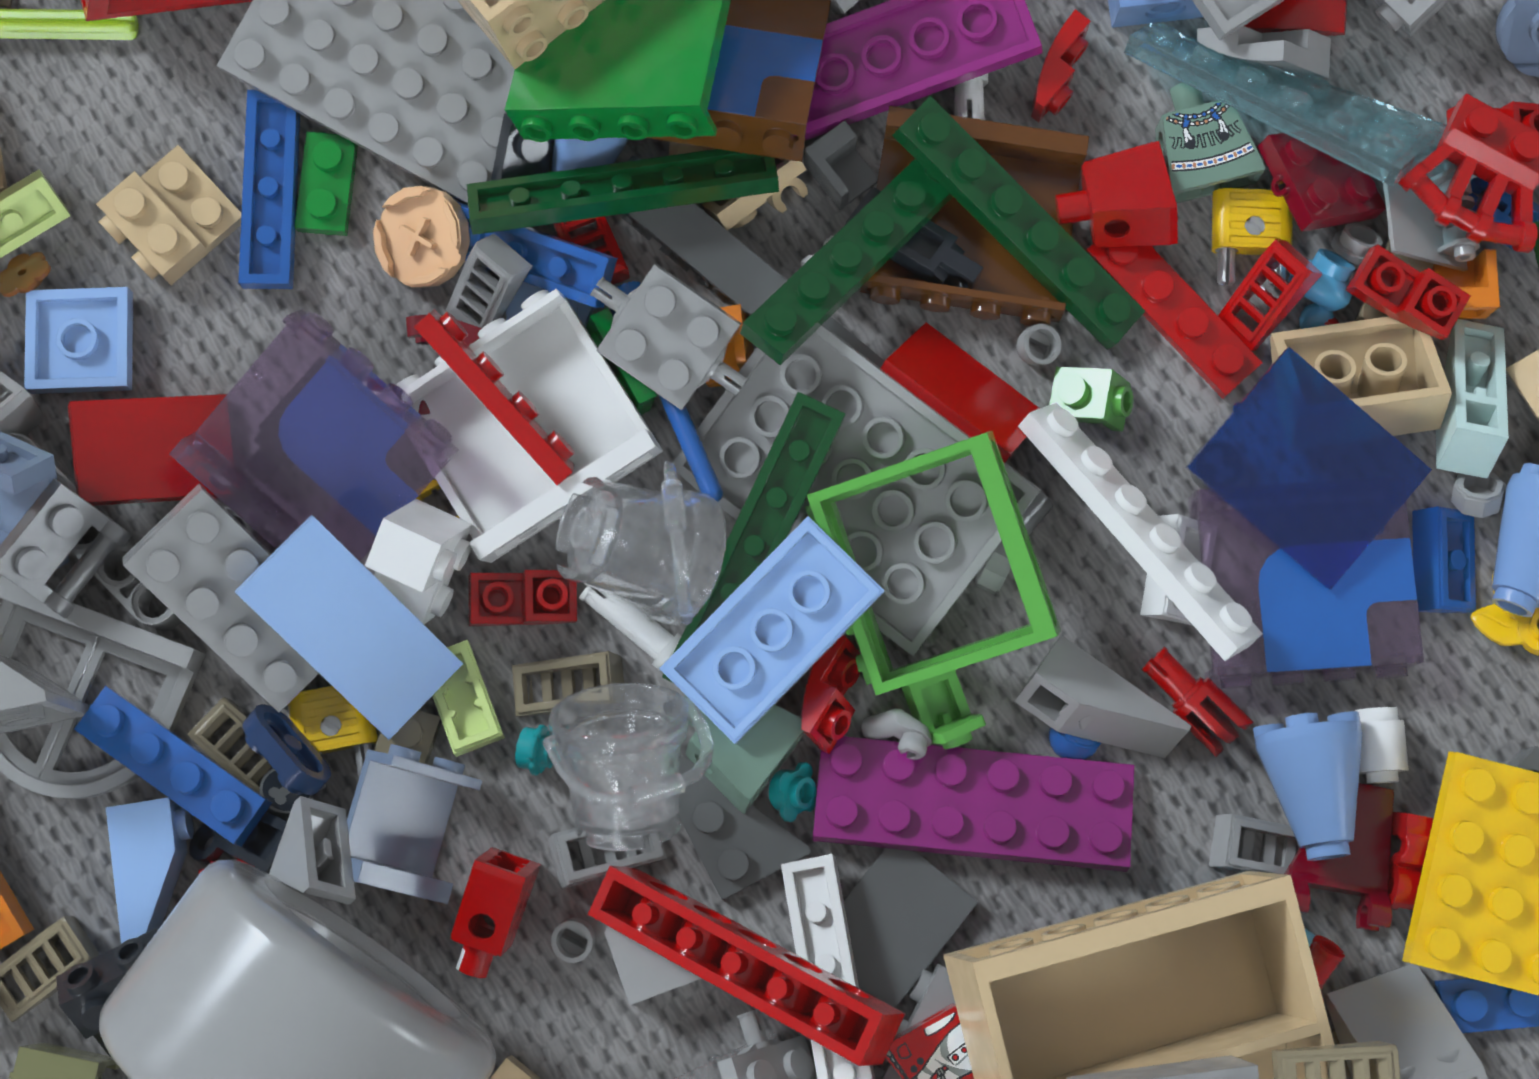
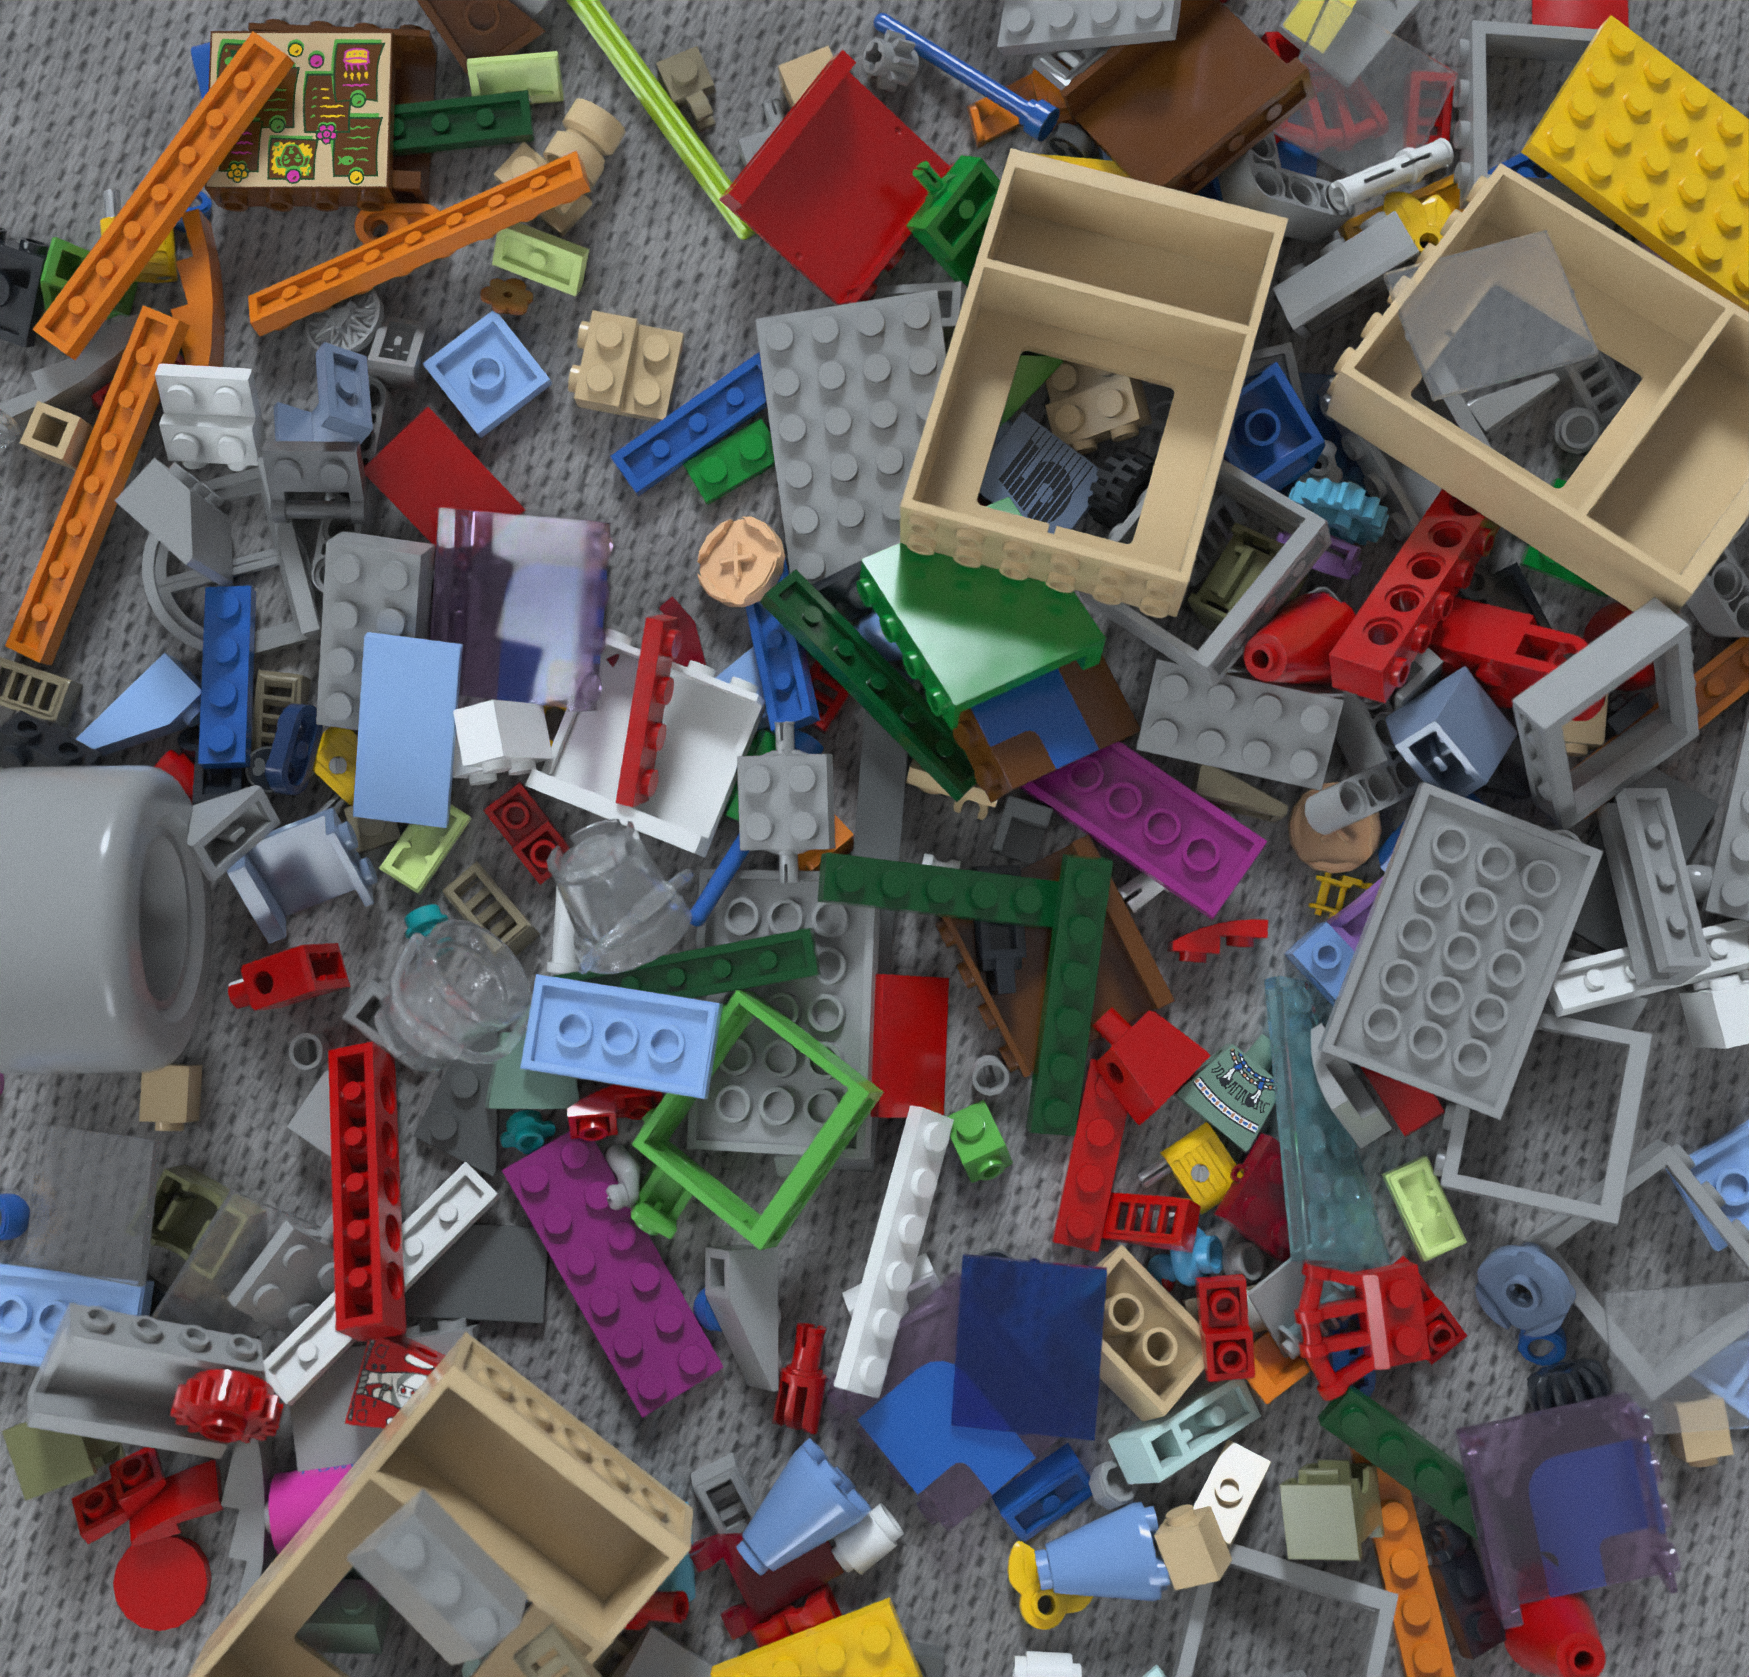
camera: 55 degrees right, 5 degrees up
(505, 263) = (737, 638): light grey slope -> none
(1418, 63) = (1424, 1208): none -> yellowish green plate

